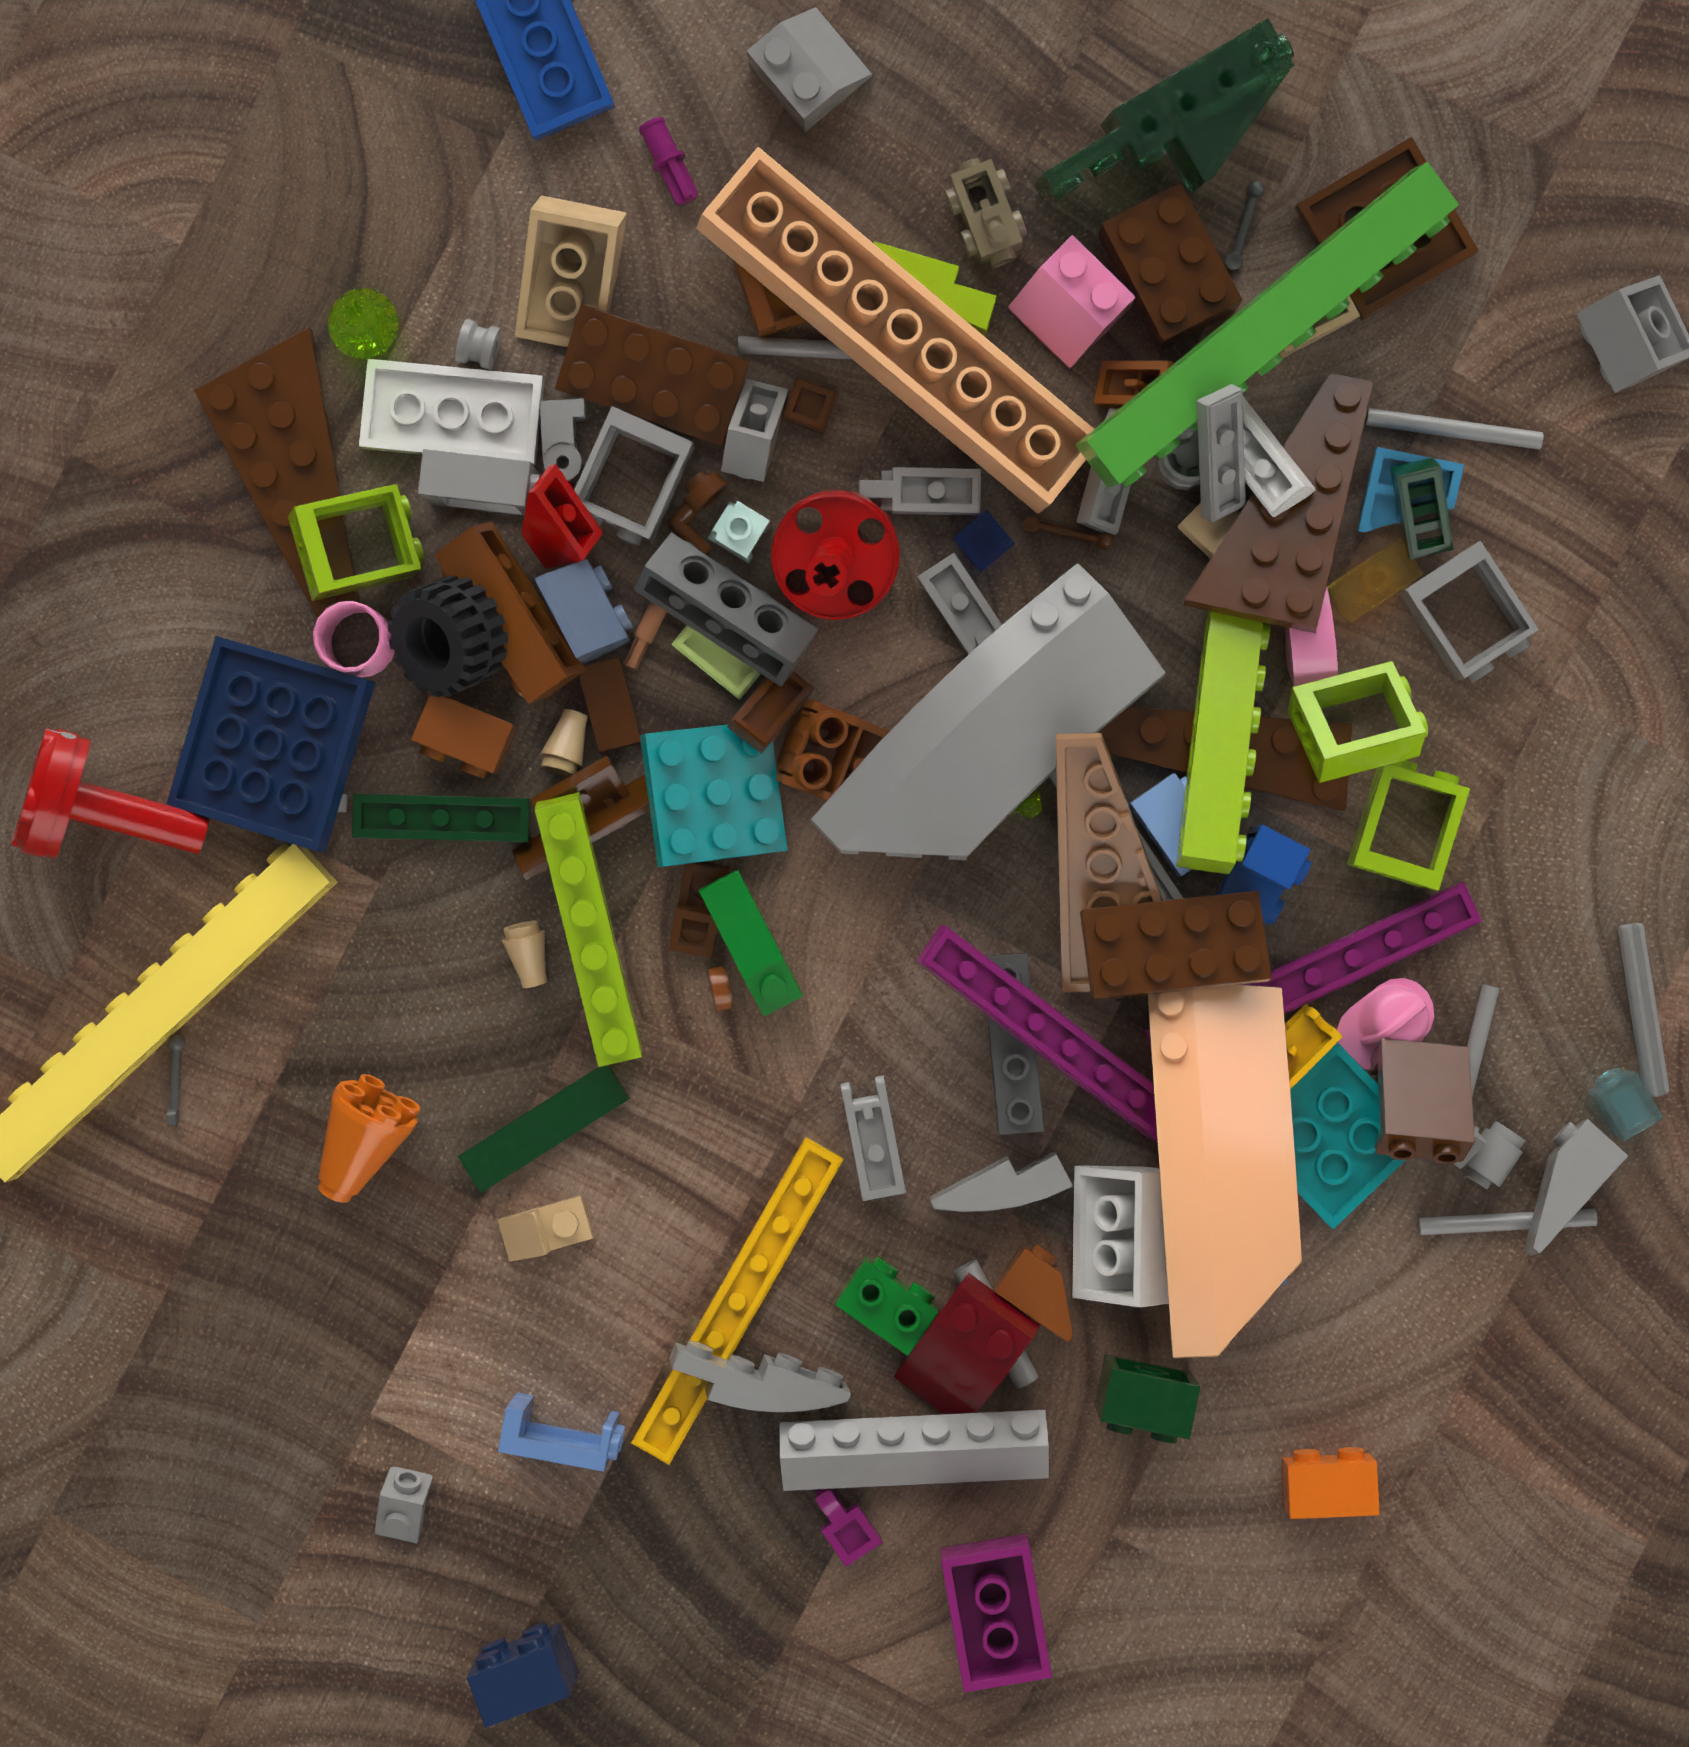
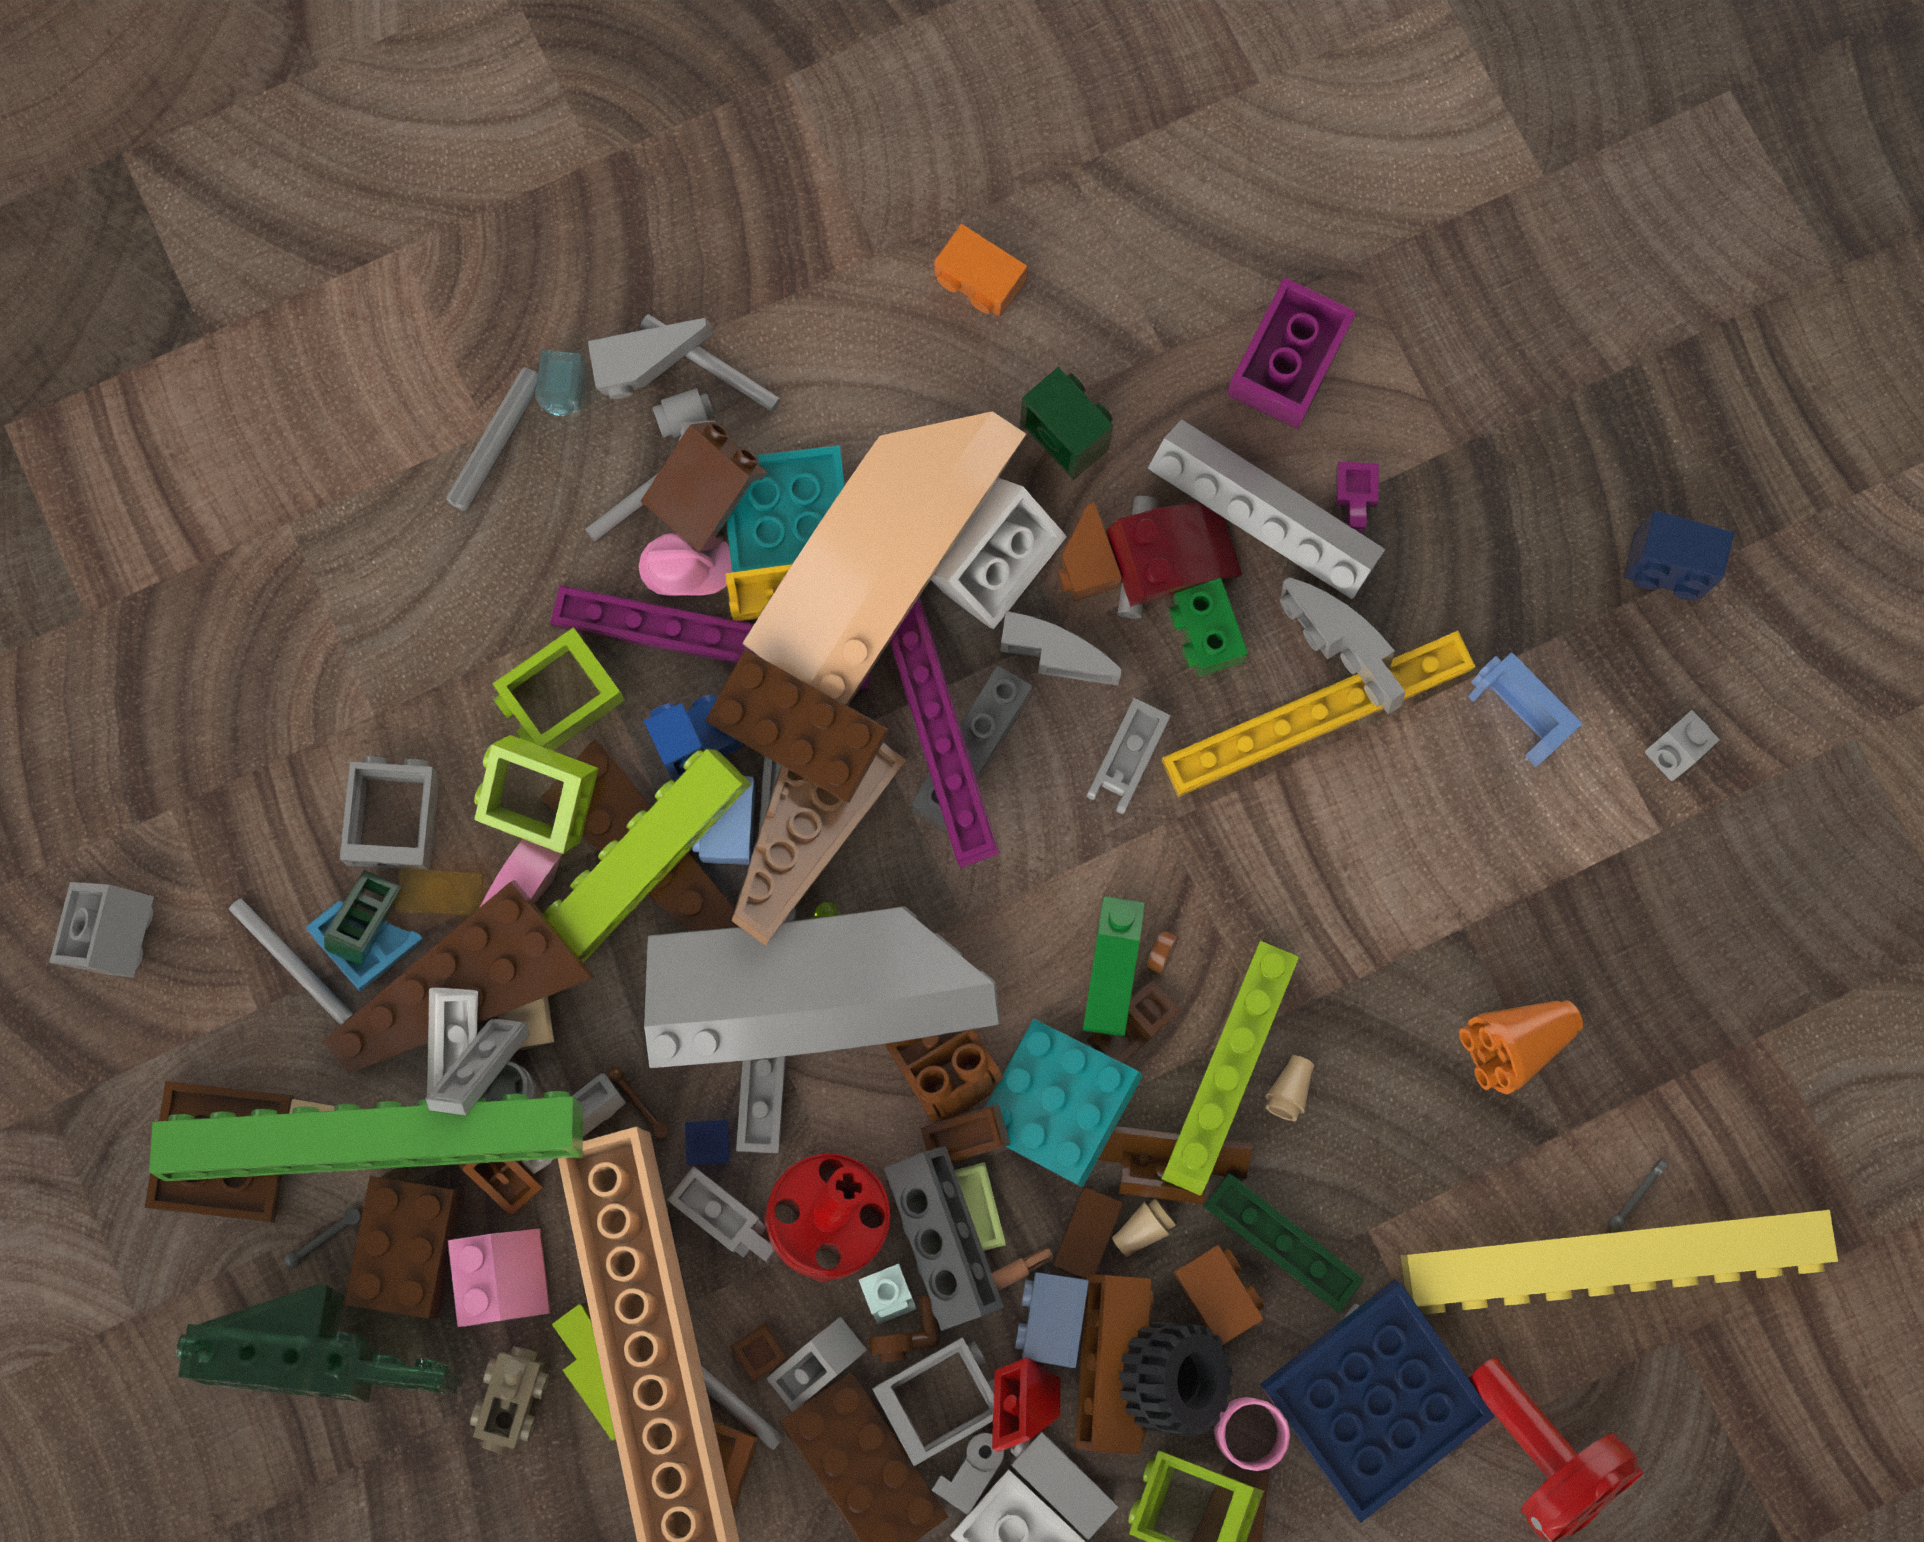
camera: 145 degrees left, 10 degrees down
(543, 1127) = (1374, 947): dark green tile -> none
(545, 1228) = (1427, 871): tan slope -> none

